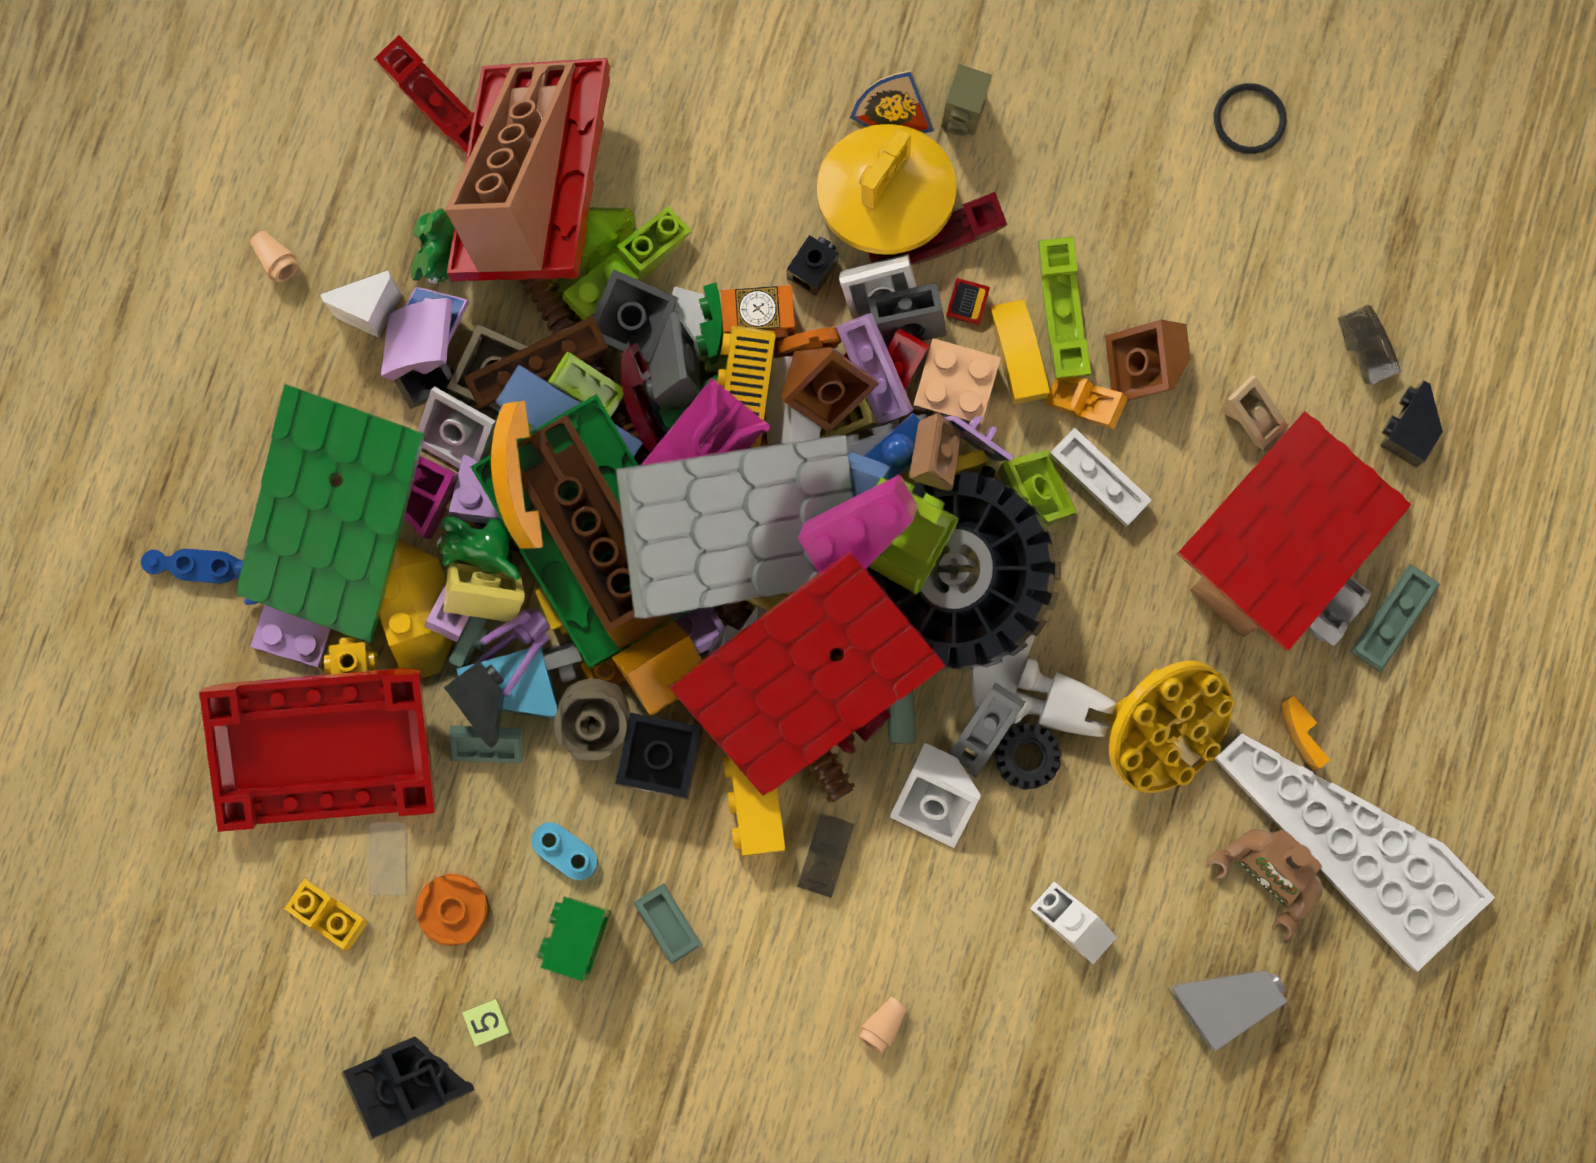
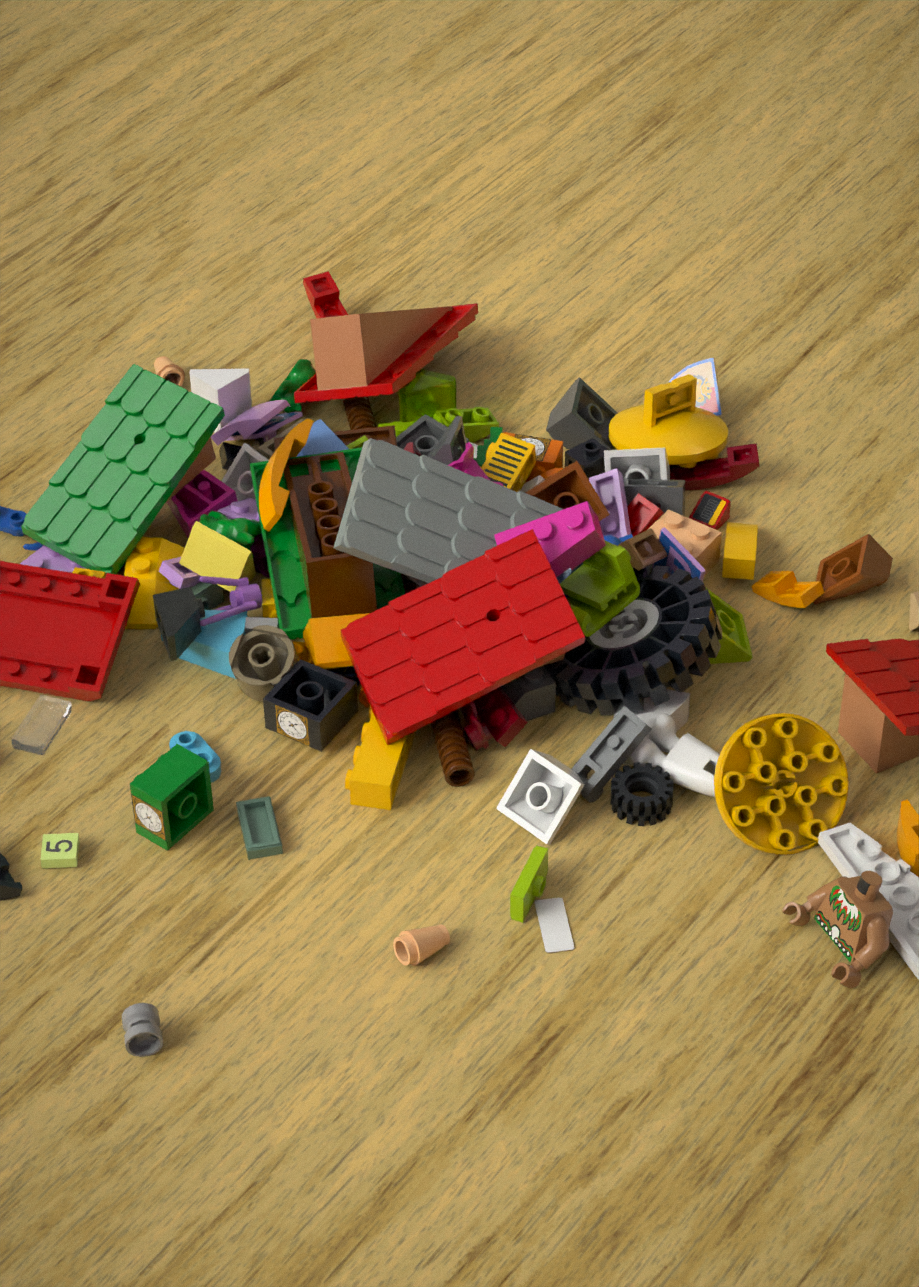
camera: 20 degrees right, 40 degrees down
(452, 909) = (76, 771): orange tile -> none
(469, 746) = (157, 668): sand green plate -> none
(783, 191) = (581, 416): none -> dark grey slope
(826, 855) = (423, 813): clear smoke slope -> none
(902, 721) = (540, 730): sand green slope -> none
(961, 917) = (529, 884): none -> lime plate
(966, 100) = (754, 395): olive brick -> none
(995, 947) = (554, 925): none -> white sticker
(1063, 308) = (790, 527): lime slope -> none
(1074, 922) = (637, 914): white slope -> none
(1100, 477) = (782, 636): white plate -> none
(1228, 1004) = (766, 1012): light grey slope -> none

